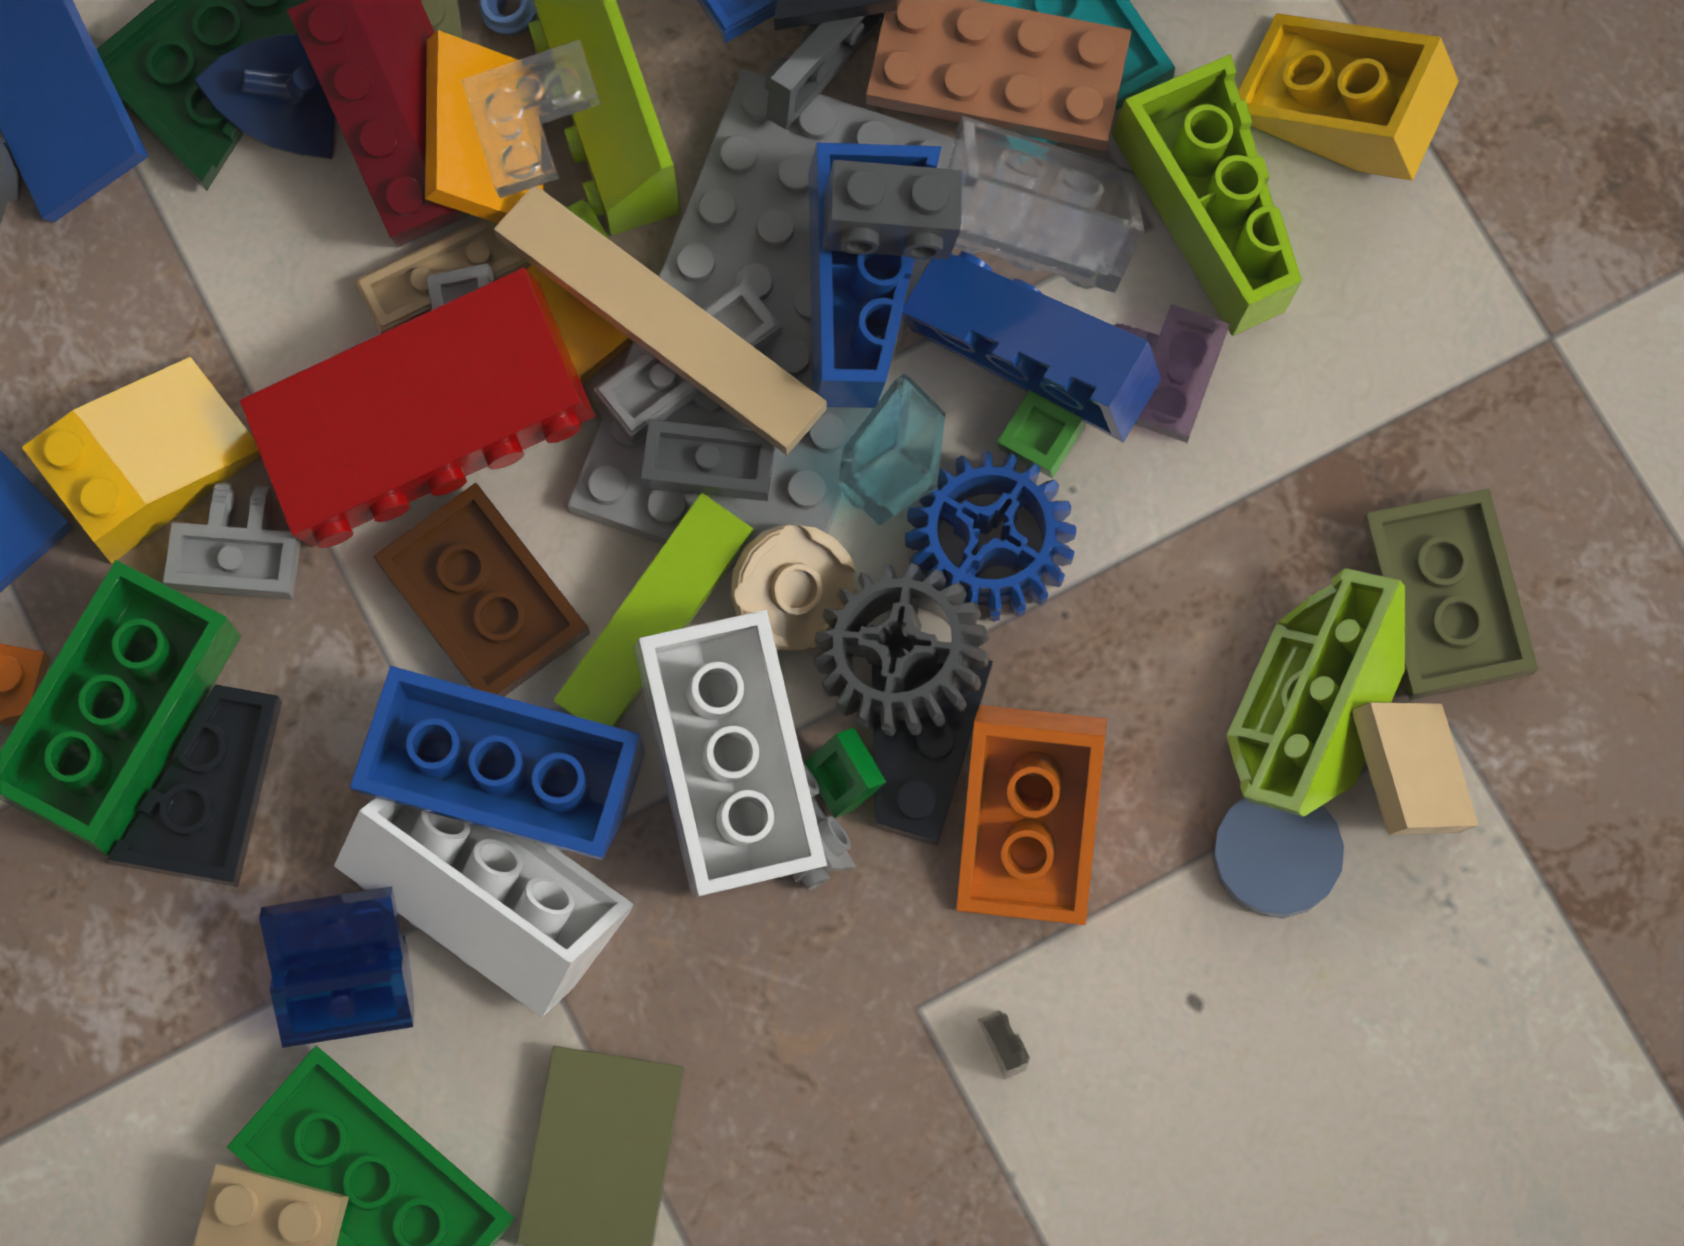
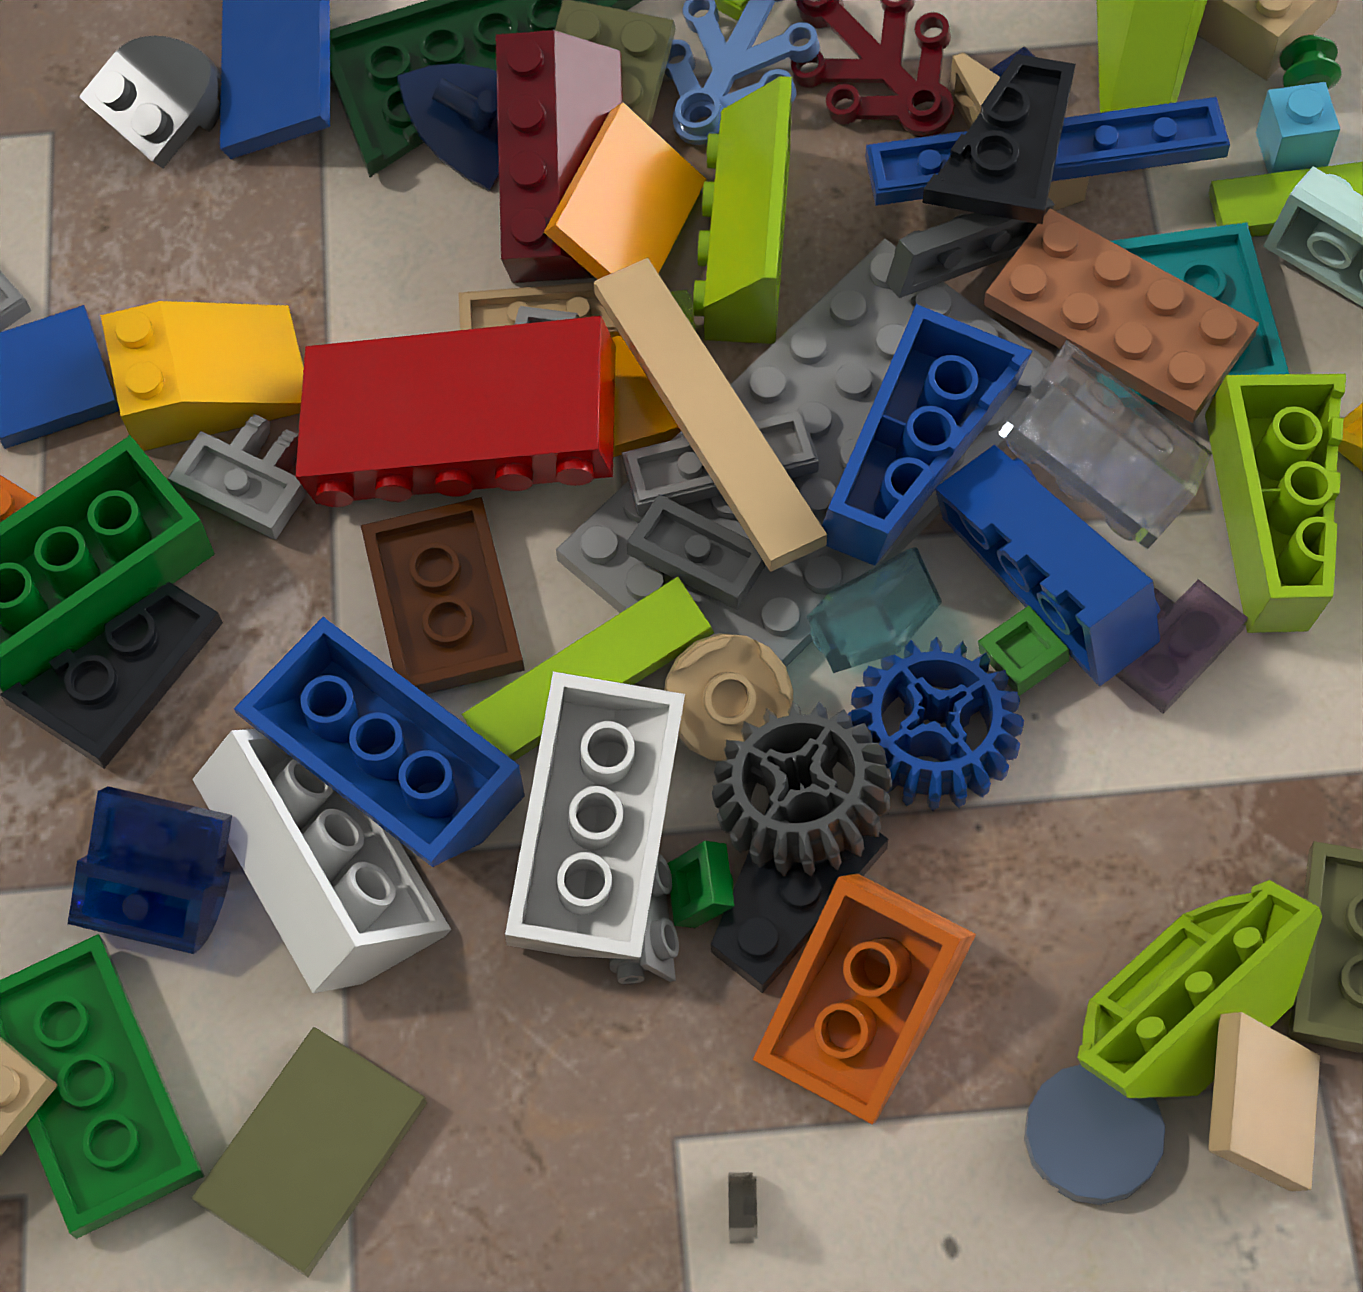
camera: 25 degrees right, 10 degrees down
(516, 101) = (660, 182): clear plate -> none
(892, 210) = (957, 379): dark grey brick -> none

